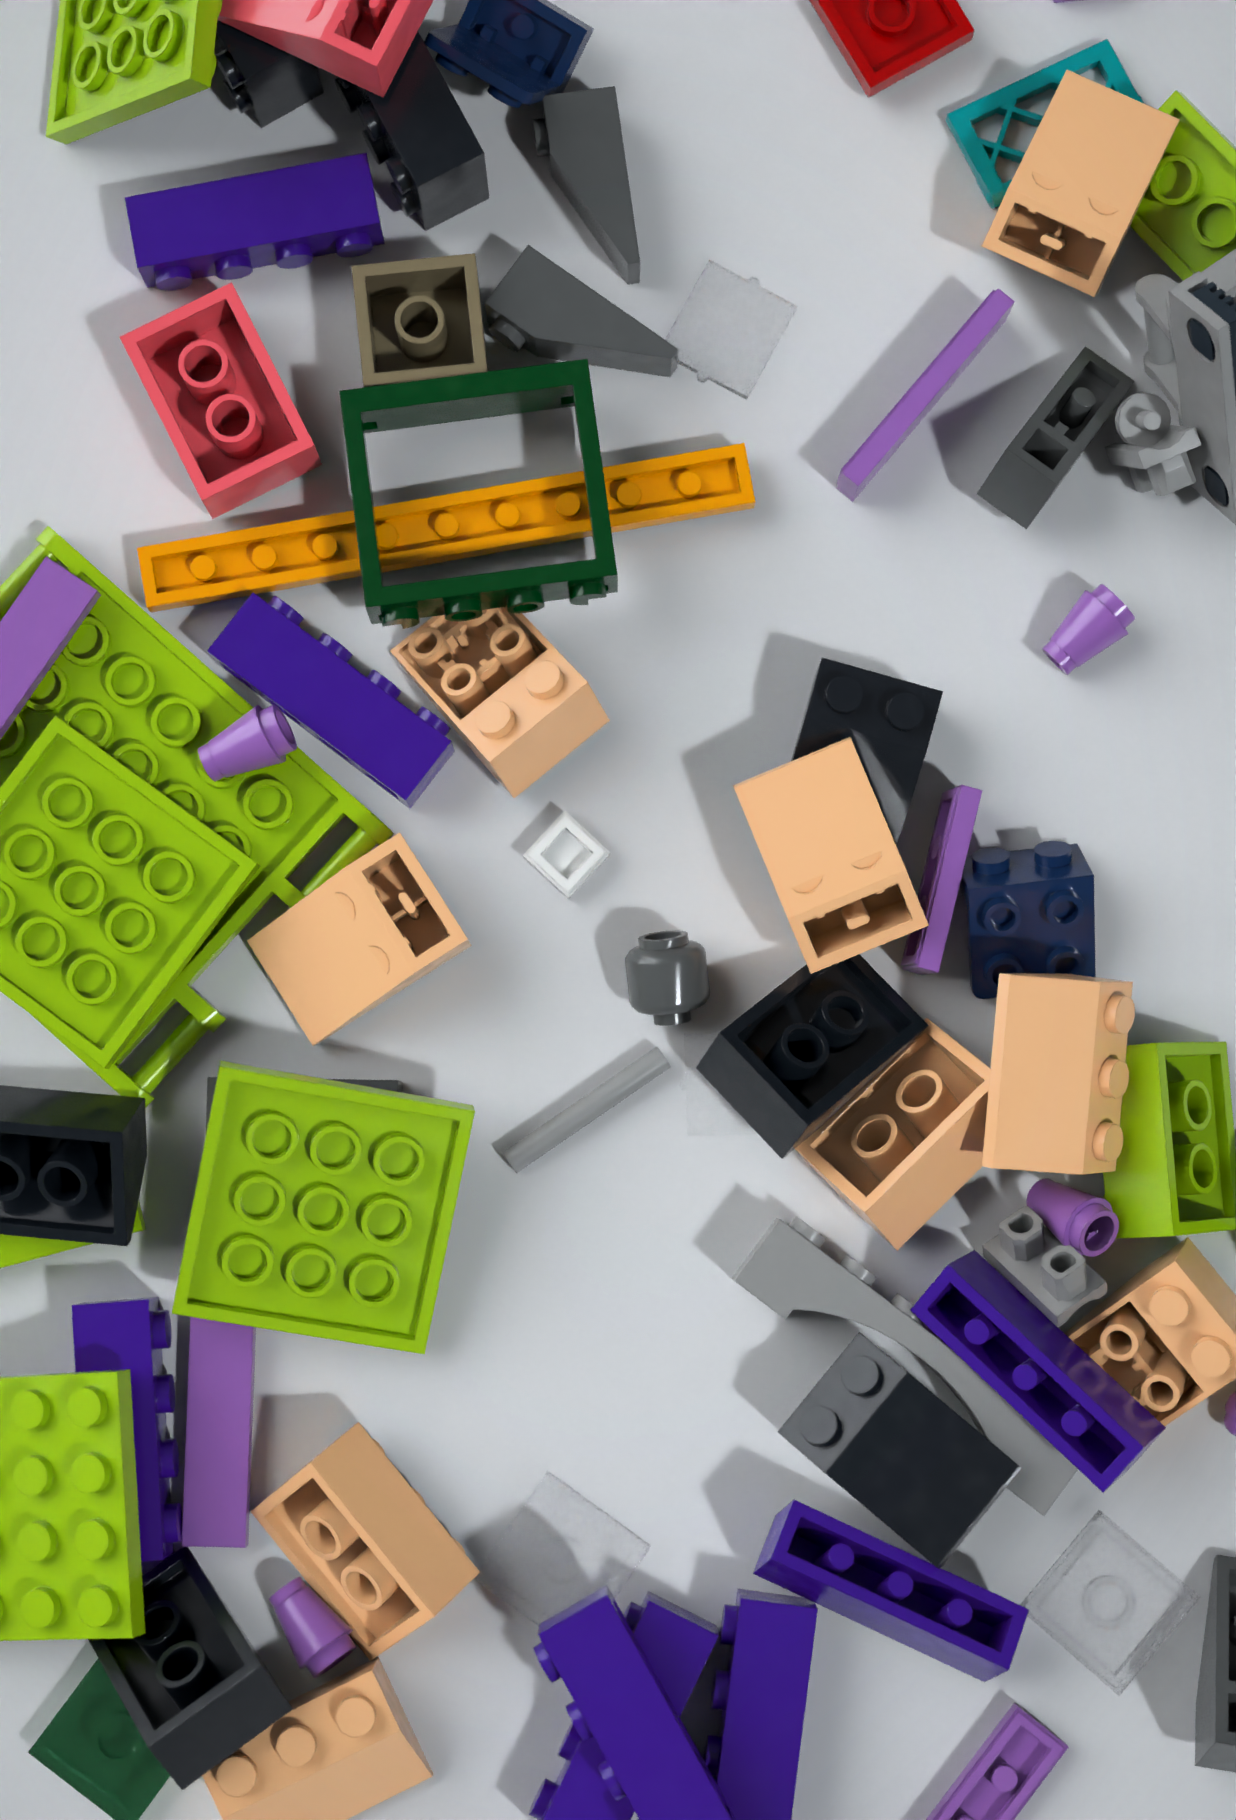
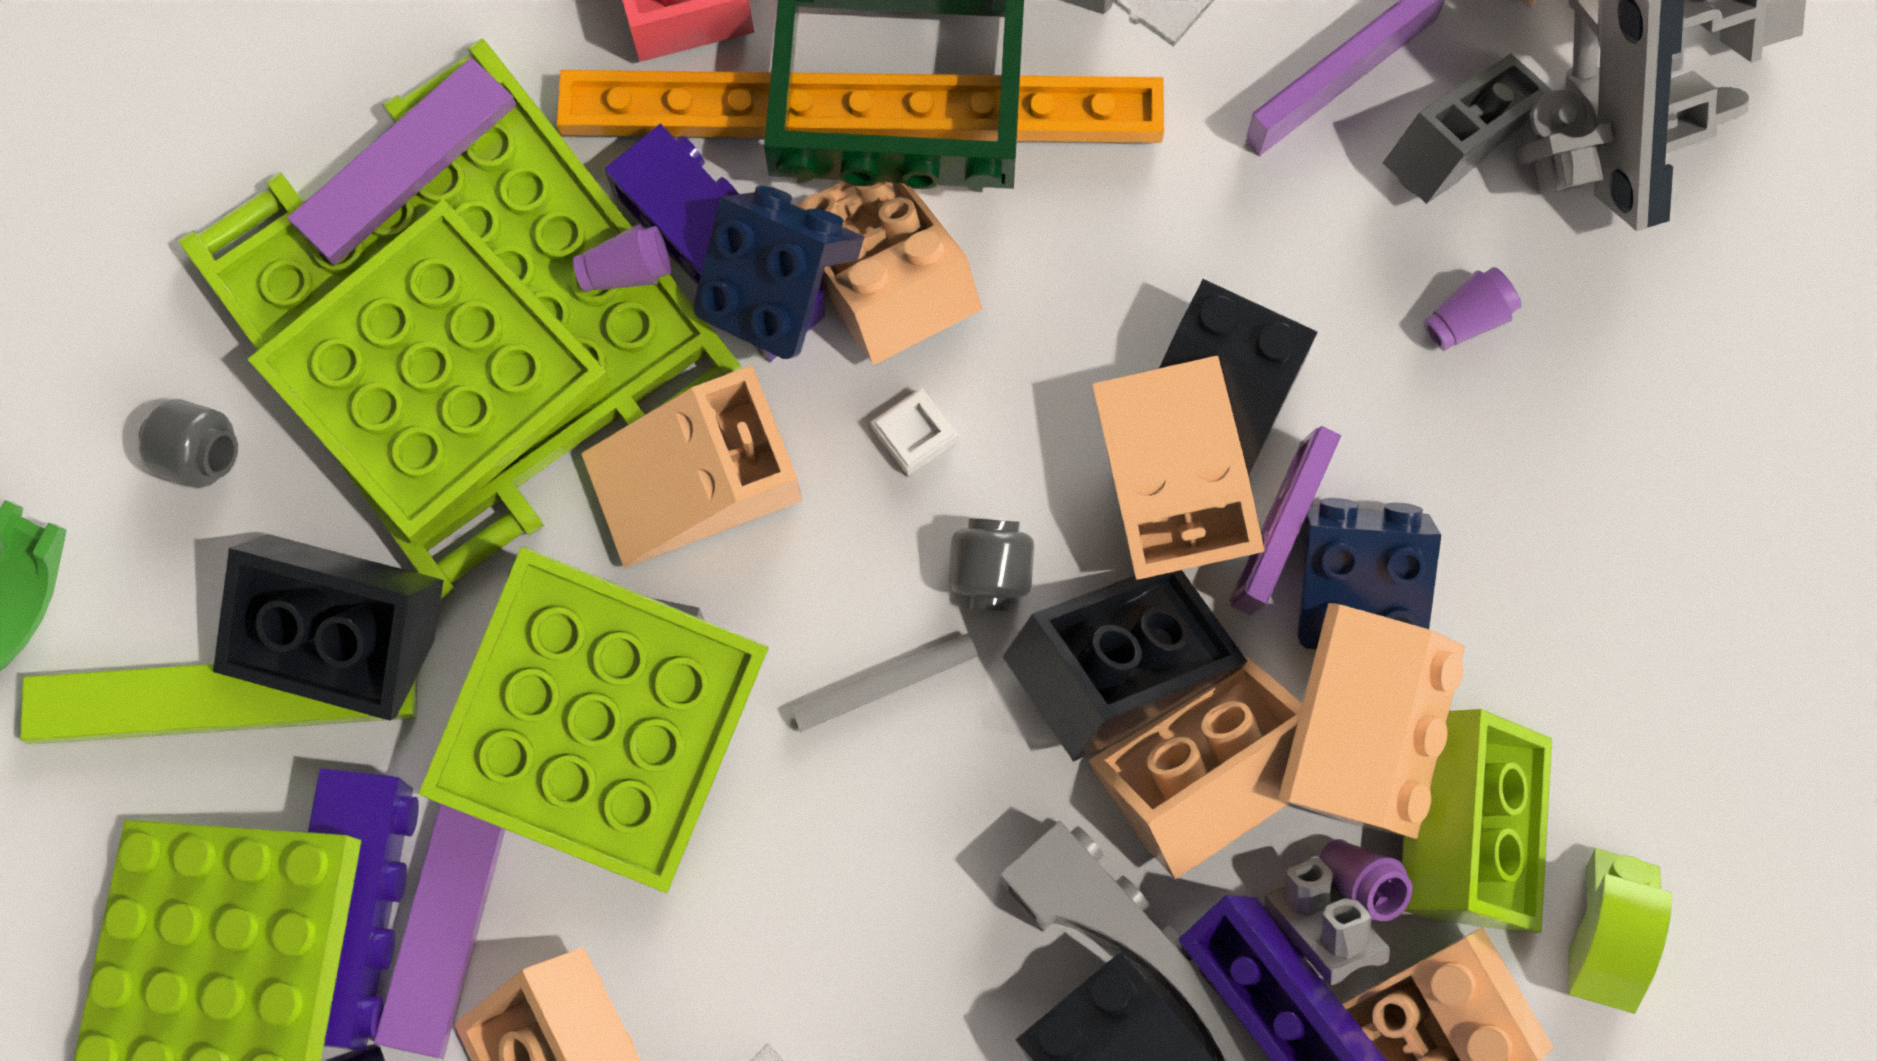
camera: 15 degrees right, 10 degrees down
(397, 728) = (768, 267): none -> dark blue bracket

